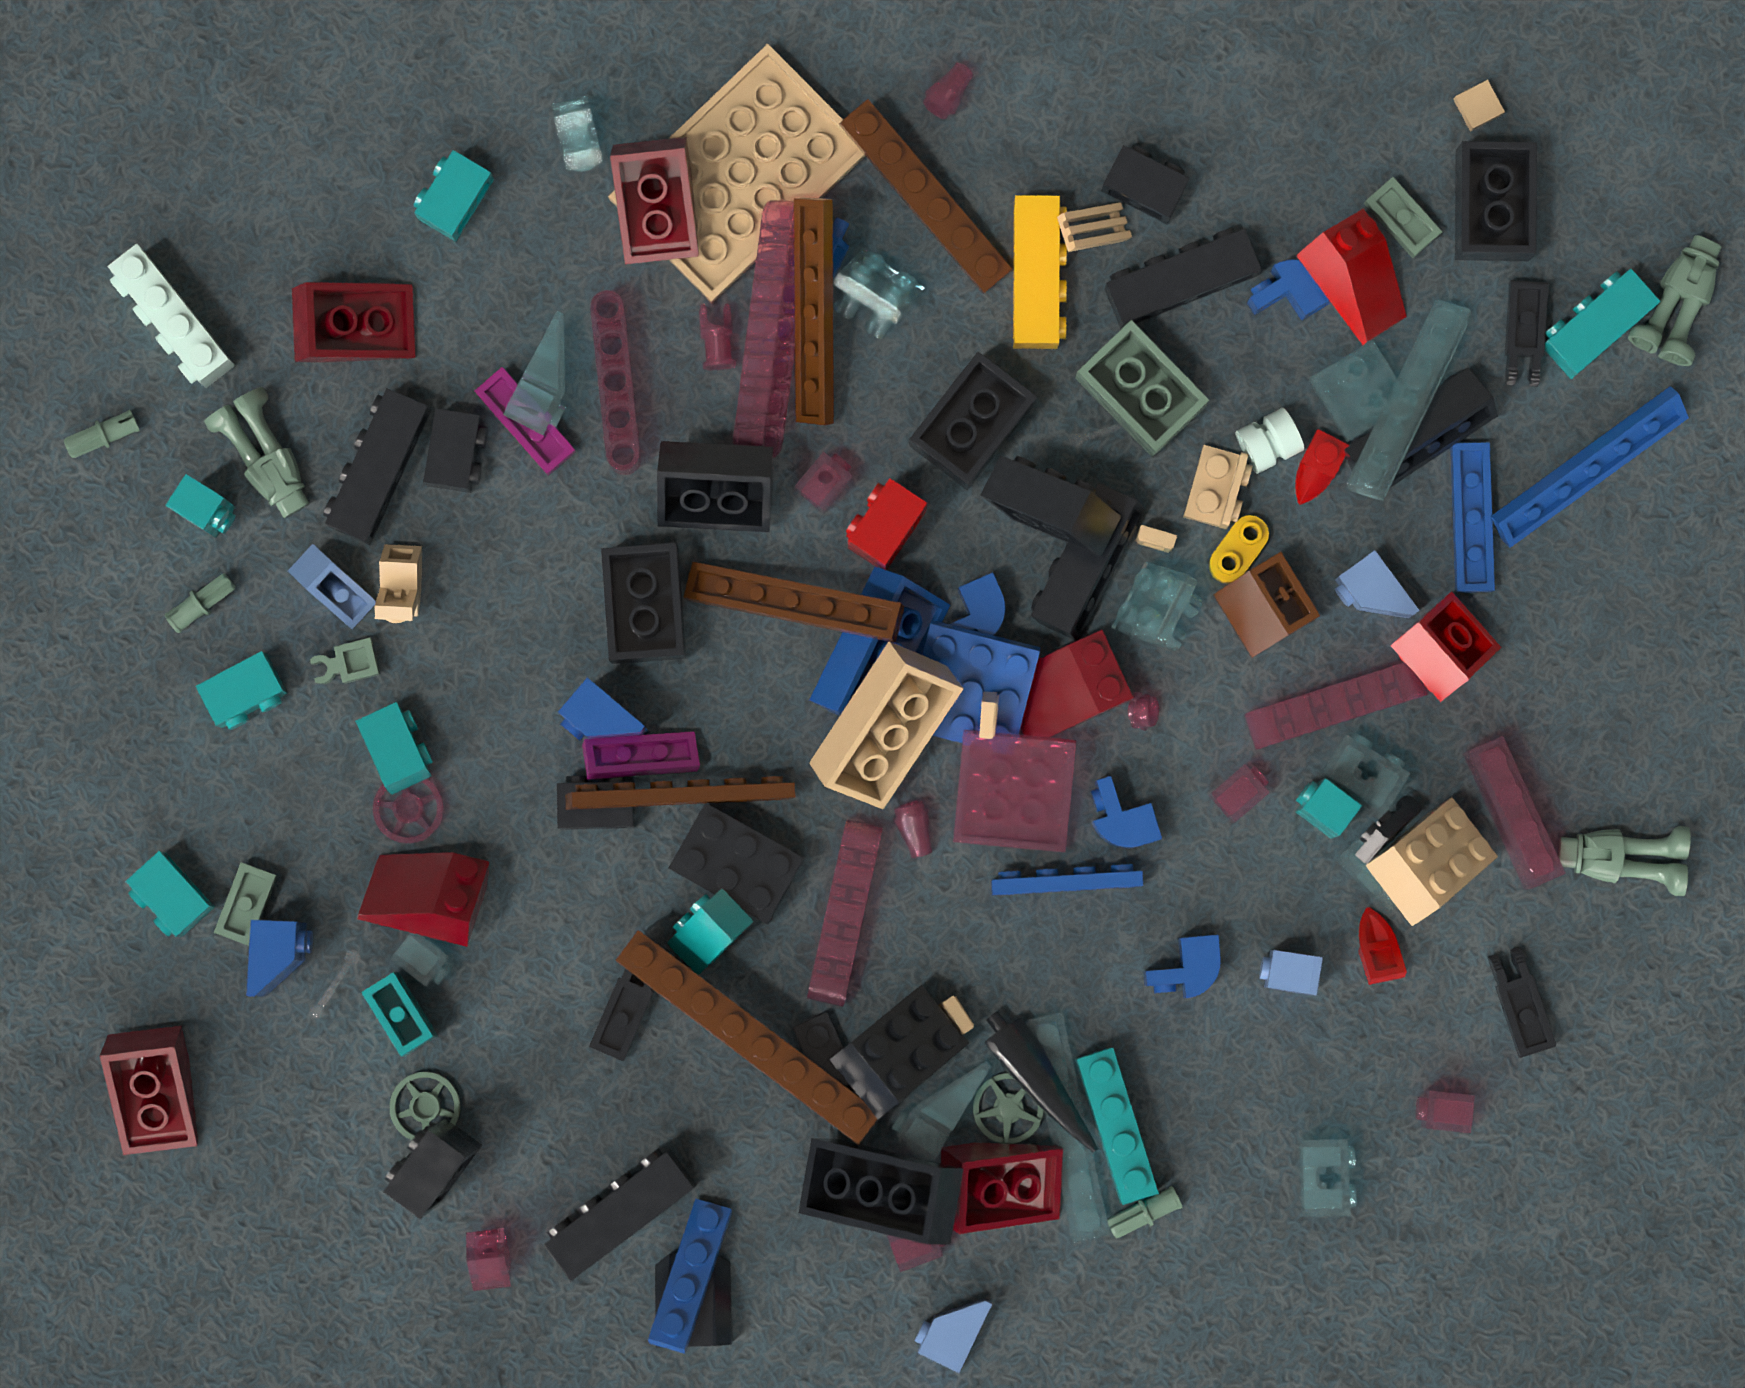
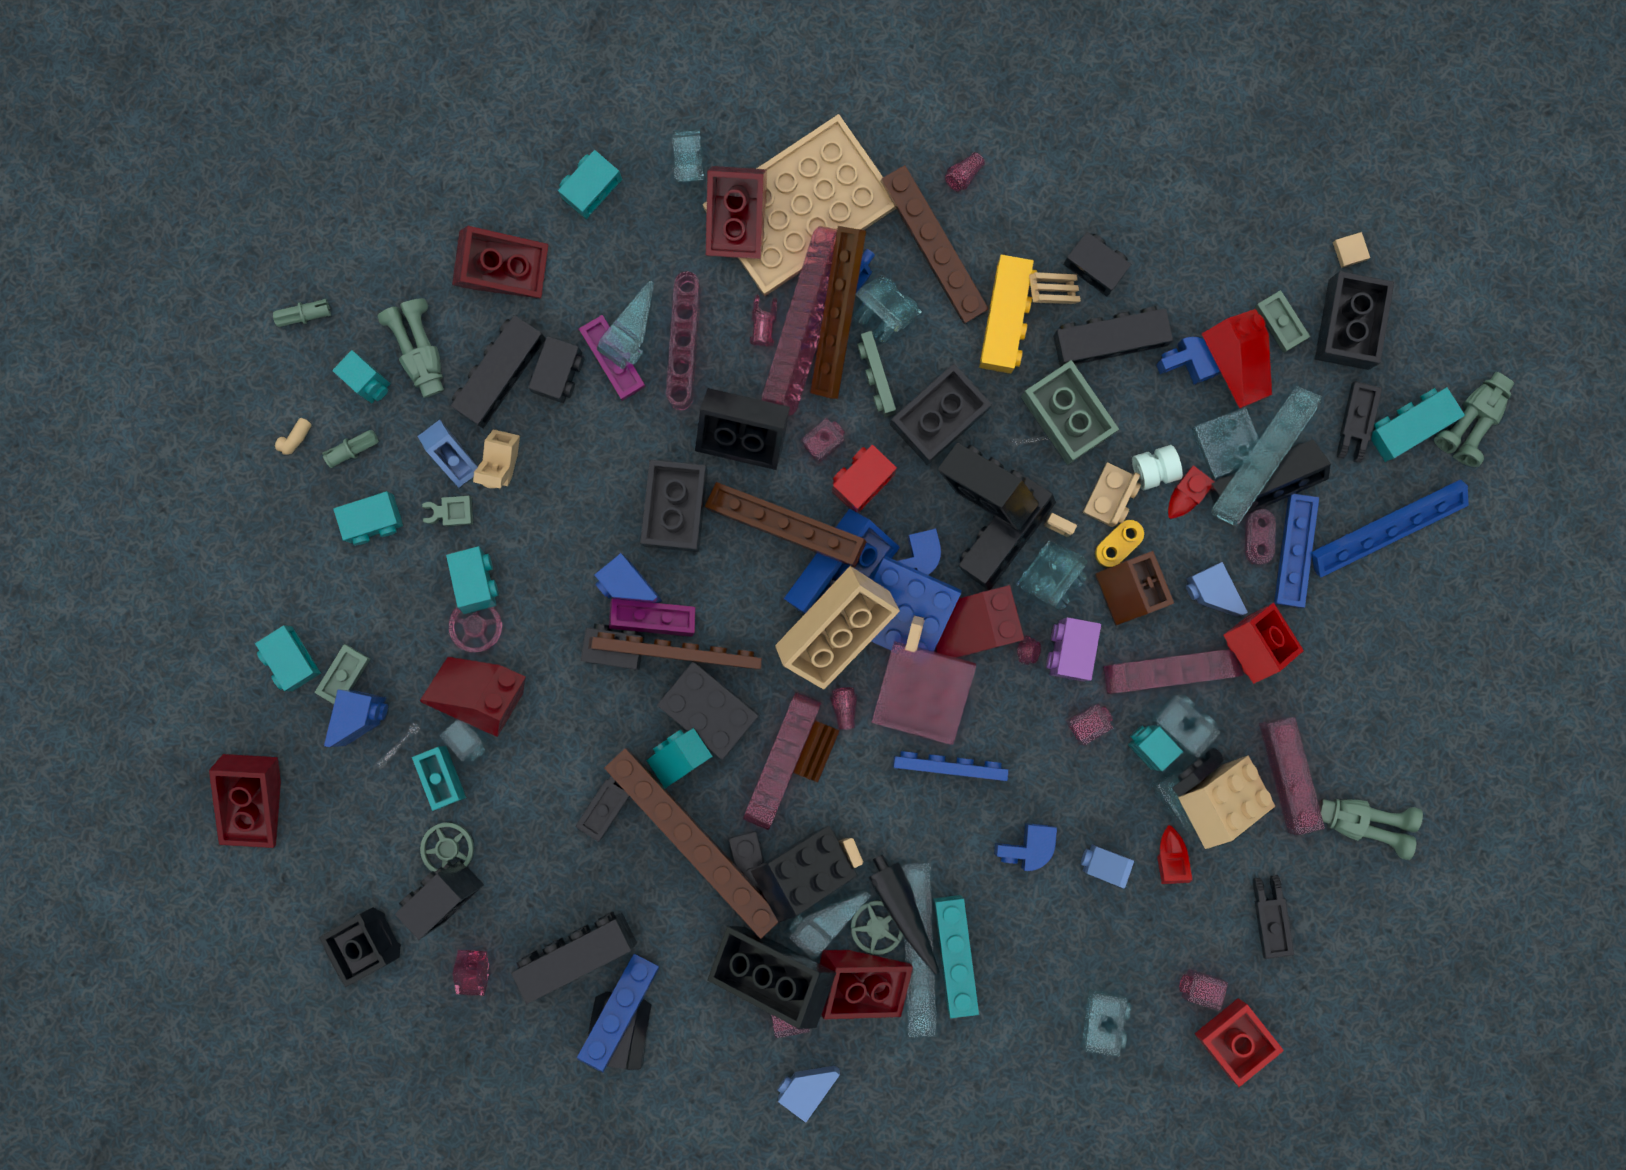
camera: 10 degrees right, 0 degrees up
(124, 602) = (297, 435): none -> tan arm
(171, 316) = (367, 236): light aqua brick -> none
(335, 1253) = (360, 946): none -> black slope
(878, 382) = (875, 374): none -> sand green plate
(888, 894) = (816, 751): none -> reddish brown tile
(1125, 828) = (998, 734): blue brick -> none
(1144, 1212) = (964, 1024): sand green axle -> none
(1200, 699) = (1073, 649): none -> medium lavender brick
(1422, 507) = (1261, 536): none -> clear pink plate
(1502, 1170) = (1239, 1042): none -> red brick

